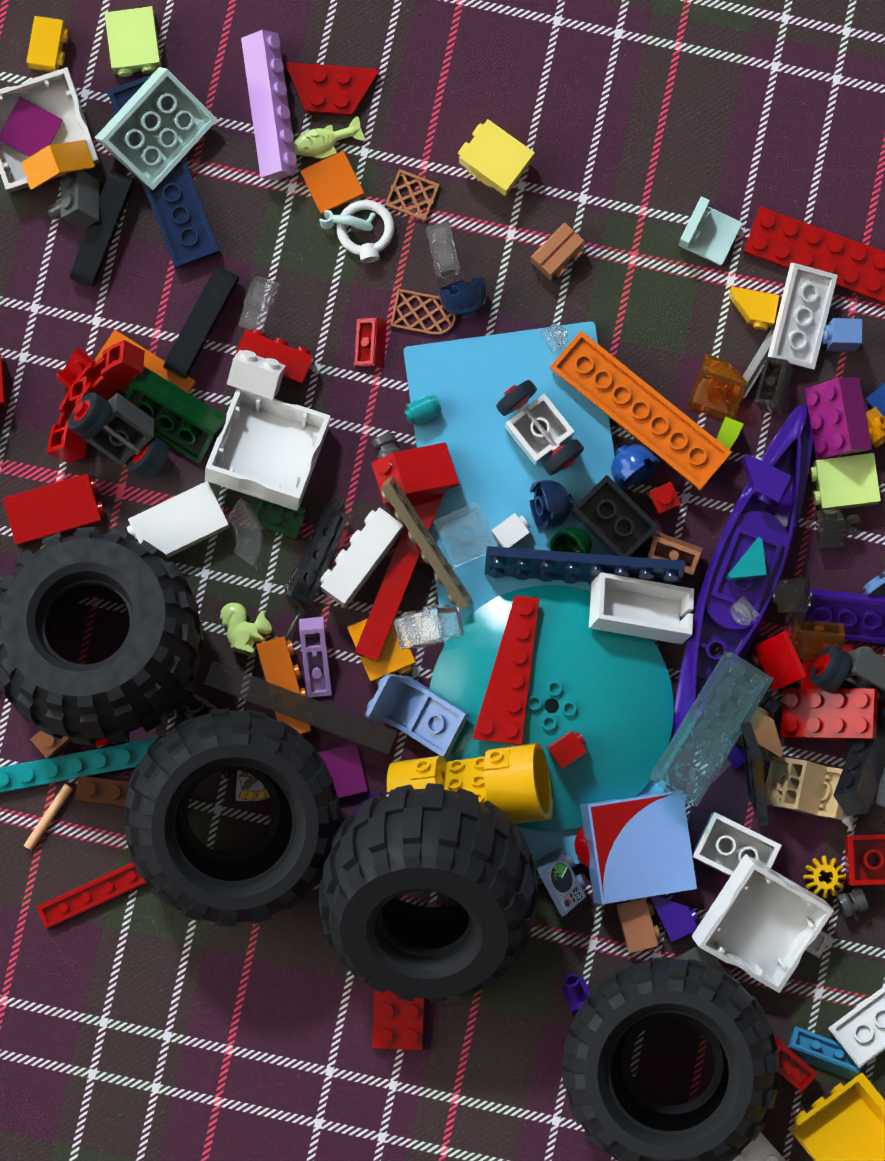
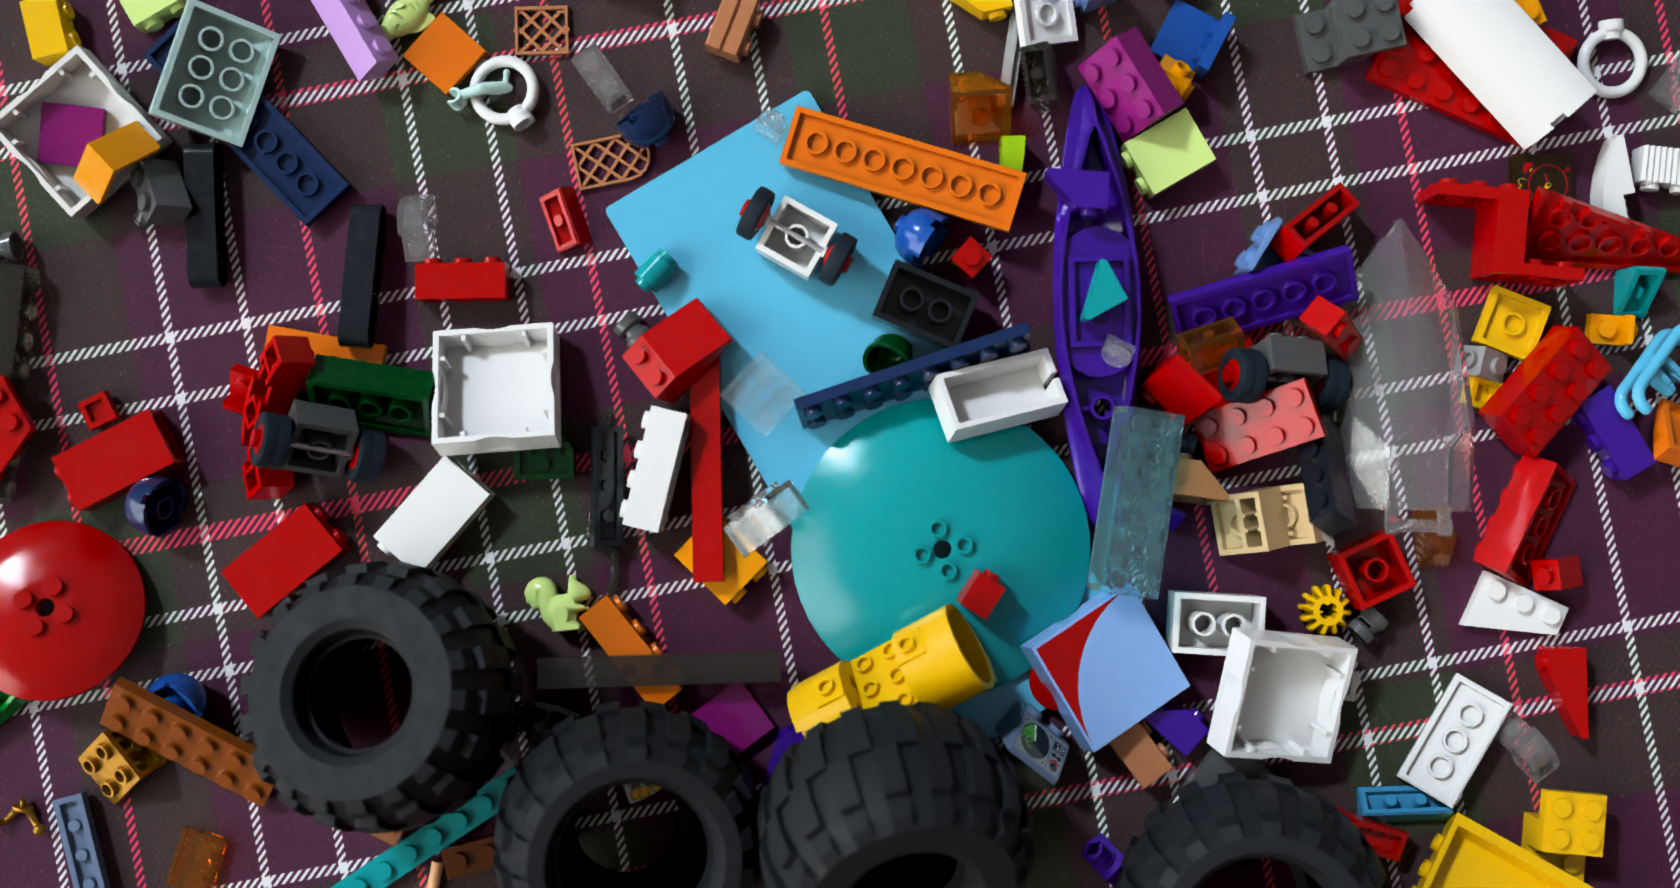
camera: 20 degrees left, 5 degrees up
(247, 531) = (516, 492): clear tile -> none
(256, 374) = (447, 310): white brick -> none
(315, 656) = (651, 601): lavender slope -> none
(417, 712) = (793, 618): medium blue bracket -> none
(430, 550) = (713, 418): dark tan plate -> none
(507, 691) = (886, 557): red wing -> none
(511, 531) = (813, 368): white brick -> none
(550, 504) = (845, 318): dark blue cylinder -> none
(674, 549) = (1002, 313): nougat brick -> none
(754, 774) = (1206, 532): black tile -> none
(793, 598) = (1166, 311): clear smoke brick -> none
(832, 527) = (1173, 211): clear smoke brick -> none

